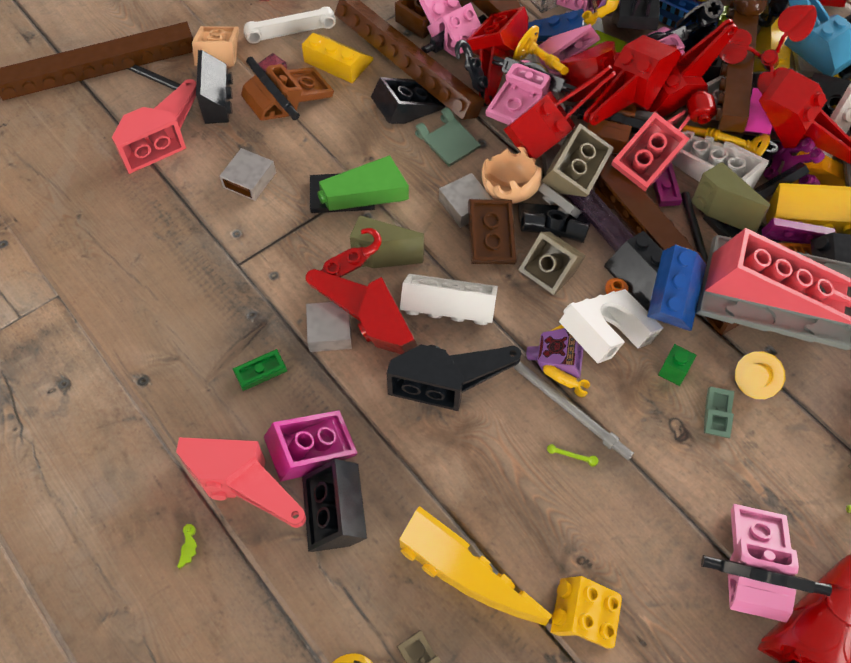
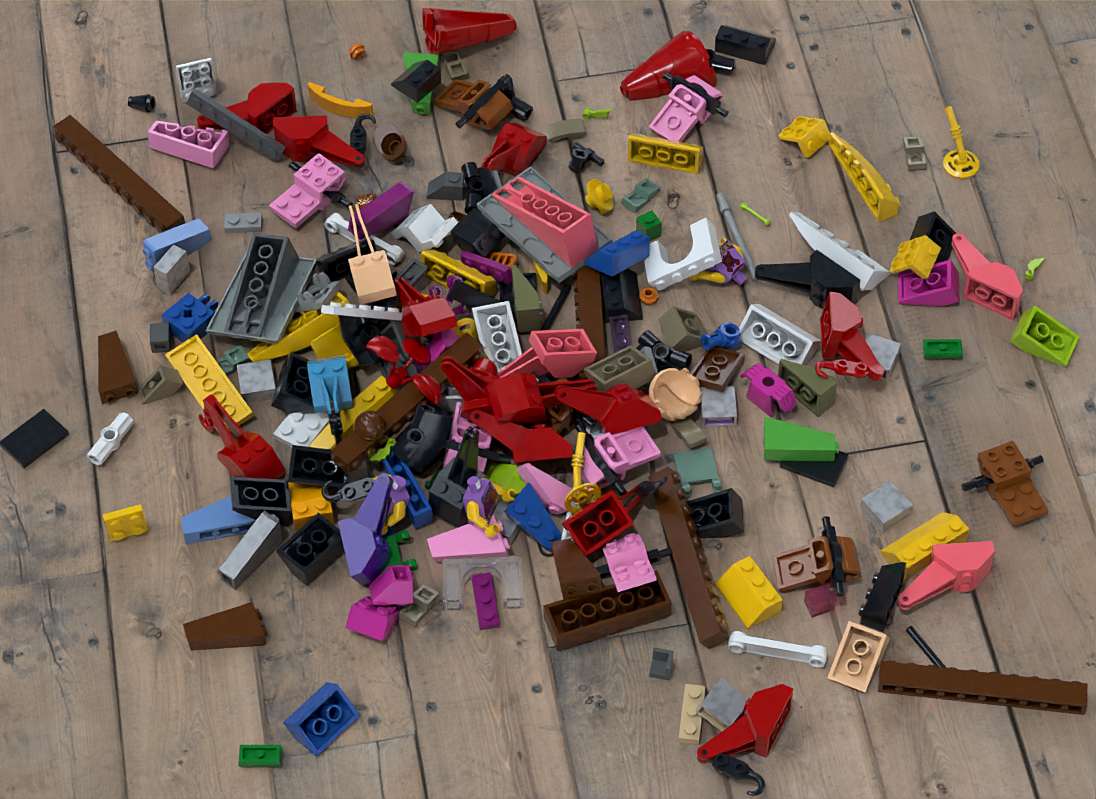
camera: 150 degrees left, 5 degrees down
(124, 239) = (1009, 482): none -> dark orange piece
(141, 437) = (1044, 337): none -> lime slope
(194, 155) = (917, 545): none -> yellow slope
(339, 455) = (916, 255): none -> yellow bracket
(427, 216) = (766, 385): none -> dark pink piece
(434, 436) = (854, 261): none -> white wedge
(472, 160) = (689, 432): none -> dark tan slope
(508, 265) = (726, 337): none -> blue connector
(738, 478) = (664, 153): none -> yellow slope
(822, 427) = (581, 156): none -> black piece

